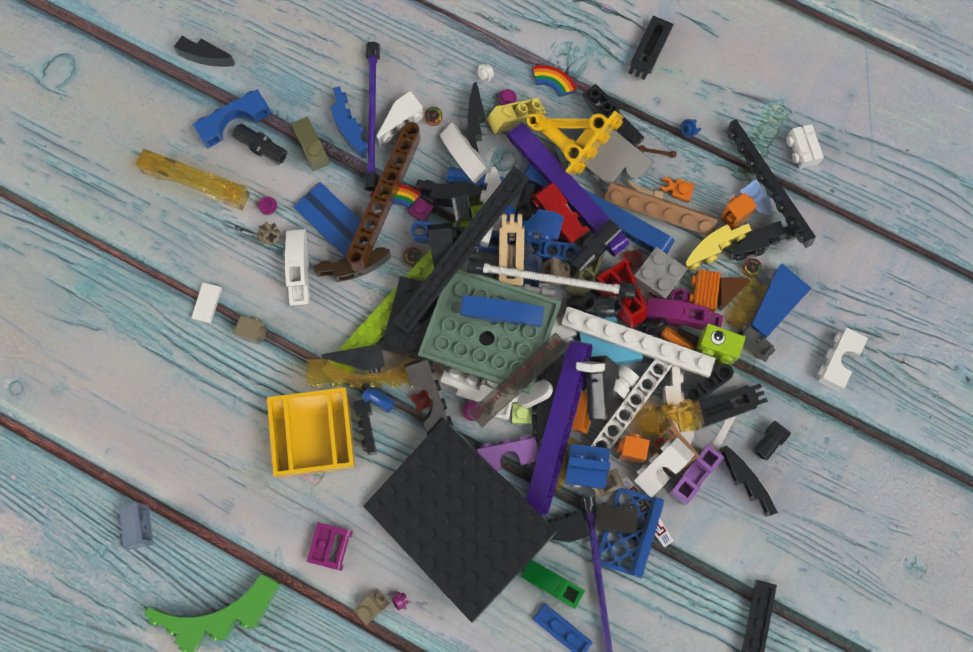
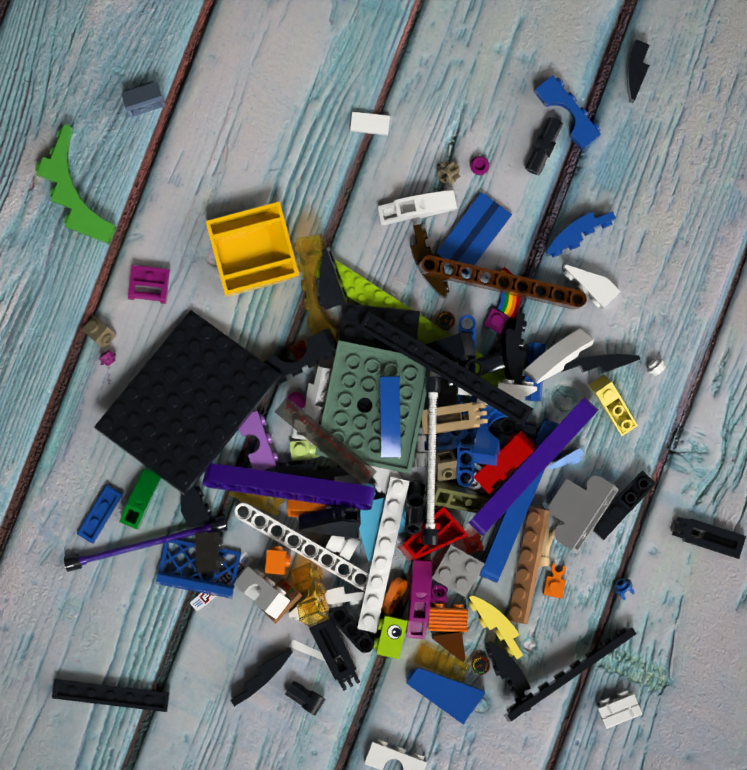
camera: 80 degrees right, 10 degrees up
(212, 185) = (495, 85): clear yellow arch -> none
(250, 329) = (348, 172): dark tan brick -> none
(310, 143) = (553, 196): olive slope -> none
(364, 411) = (282, 295): black plate -> none
(372, 54) = (661, 245): dark purple hose -> none
(379, 399) = (295, 308): blue plant -> none
(433, 116) = (600, 319): tile -> none
(507, 97) = (631, 393): magenta plate -> none
(541, 391) = (319, 464): white tile -> none
(554, 78) = (661, 440): tile -> none
(587, 466) = (254, 518): blue bracket -> none
(588, 141) = (570, 470): yellow plate -> none
(589, 366) = (346, 508): white tile -> none
(595, 245) = (472, 500): black piece -> none
(613, 483) = (241, 540): dark tan bracket -> none
(653, 328) = (402, 569): black arm -> none
(672, 154) = (595, 540): reddish brown hinge -> none
(695, 474) = (260, 624): medium lavender arch -> none
(738, 210) = (535, 644): orange brick -> none
(759, 195) = (555, 663): light blue plate -> none
(760, 349) = (403, 666): dark grey hinge -> none

